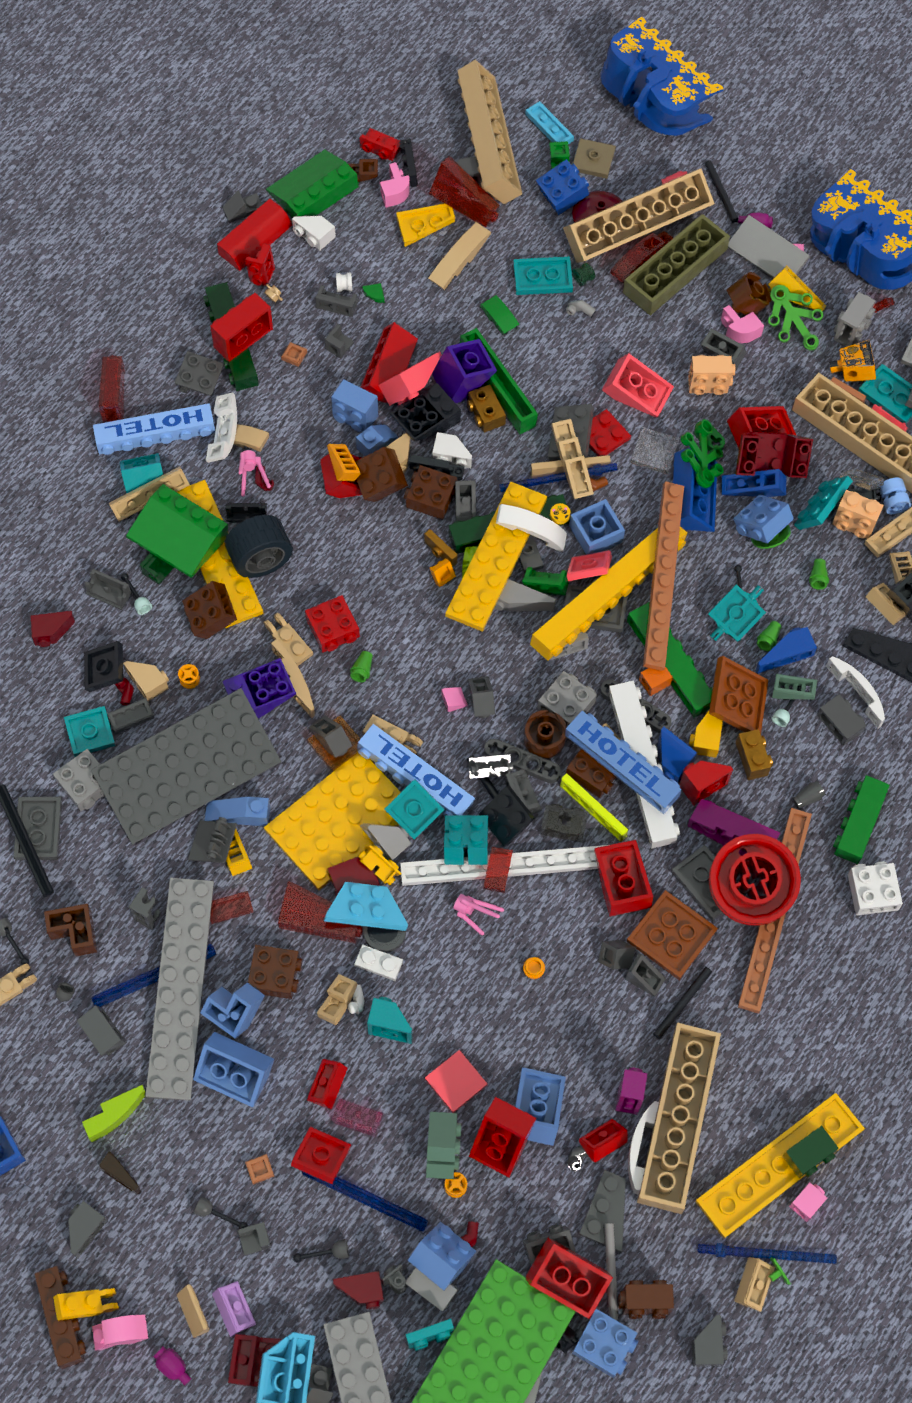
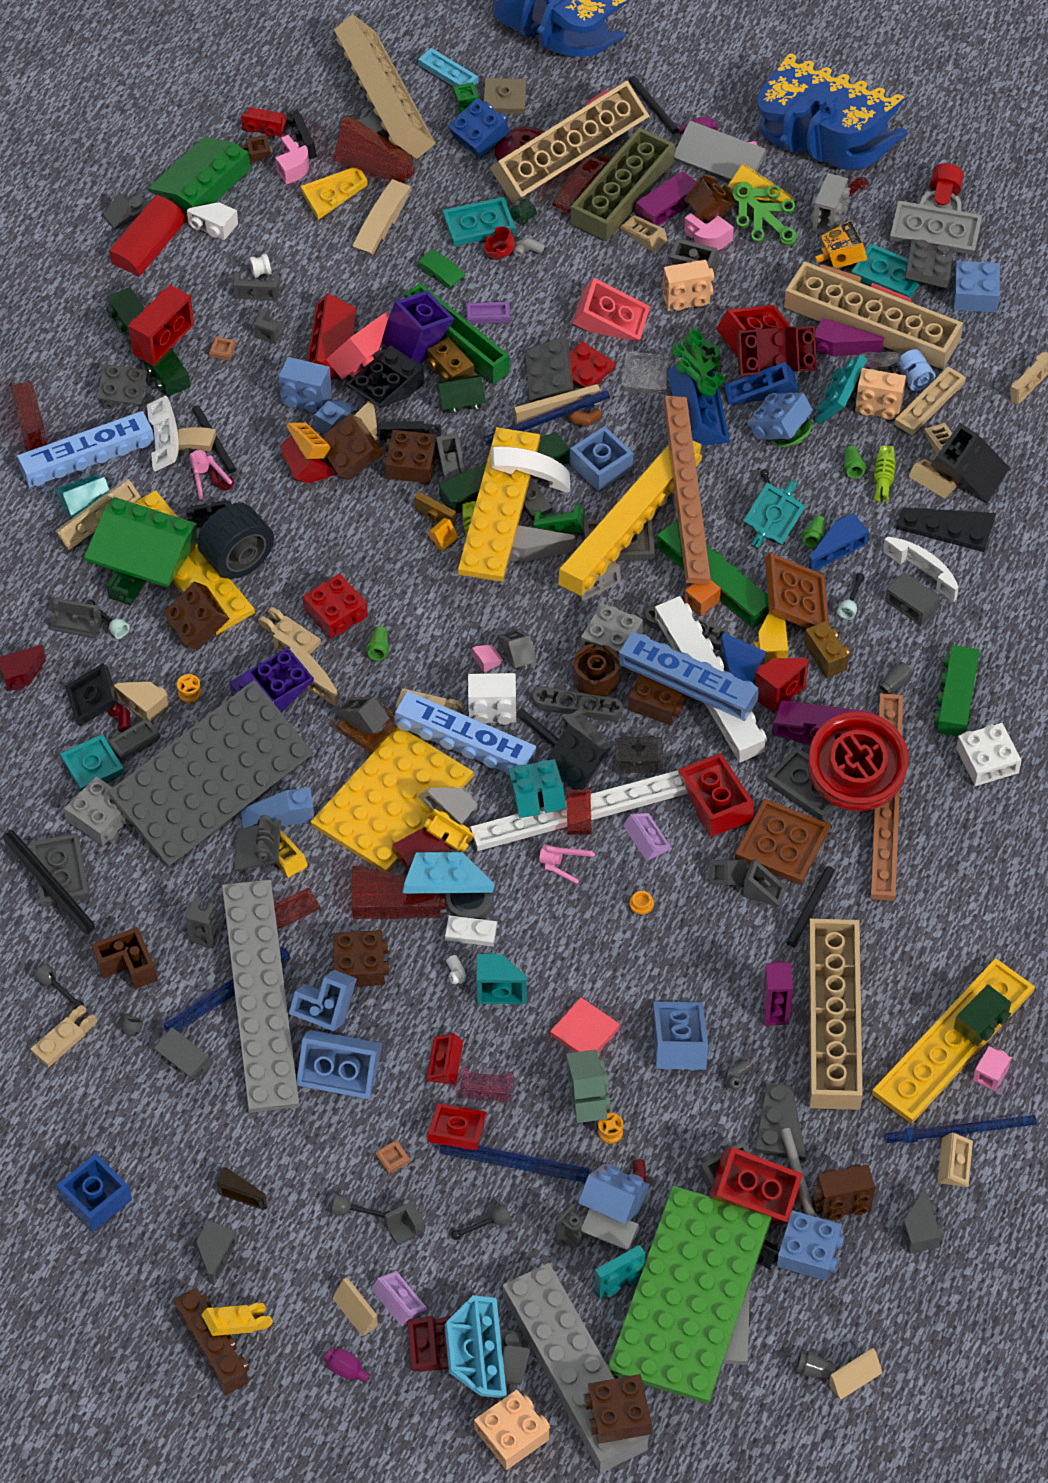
camera: 10 degrees left, 10 degrees down
(114, 1113) = (218, 1132): lime slope -> none
(120, 1331) = (280, 1338): bright pink brick -> none
(261, 268) = (164, 264): red bracket -> none
(268, 445) = (217, 444): none -> black bar
(273, 293) = (185, 287): tan plate -> none
(339, 997) = (436, 974): tan slope -> none
(362, 1288) = (533, 1247): dark red slope -> none
(374, 292) = (296, 270): green tile -> none
(414, 809) = (473, 767): teal plate -> none
(446, 743) = (492, 697): none -> white brick
(451, 449) = (424, 409): white slope -> none
(488, 439) = (461, 393): none -> dark green brick
(489, 766) = (544, 713): hinge -> none
(502, 1137) = (650, 1063): red brick -> none
(531, 364) = (488, 312): none -> medium lavender tile
(553, 902) = (646, 835): none -> lavender slope
(555, 301) = (500, 244): none -> red hair
(560, 513) = (558, 449): yellow tile -> none
(572, 459) = (558, 393): tan slope -> none
(589, 565) = (603, 495): coral tile -> none
(593, 807) = (670, 735): neon yellow tile -> none
(604, 1140) = (760, 1053): red slope -> none
(636, 1173) = (800, 1076): white slope -> none
(692, 322) = (652, 241): none -> tan slope
(710, 286) = (665, 199): none -> magenta brick
(778, 1272) = (978, 1143): bright green piece -> none
(786, 693) = (843, 580): sand green slope -> none
(836, 453) = (841, 339): none -> magenta slope
(844, 589) = (884, 472): none -> lime hinge

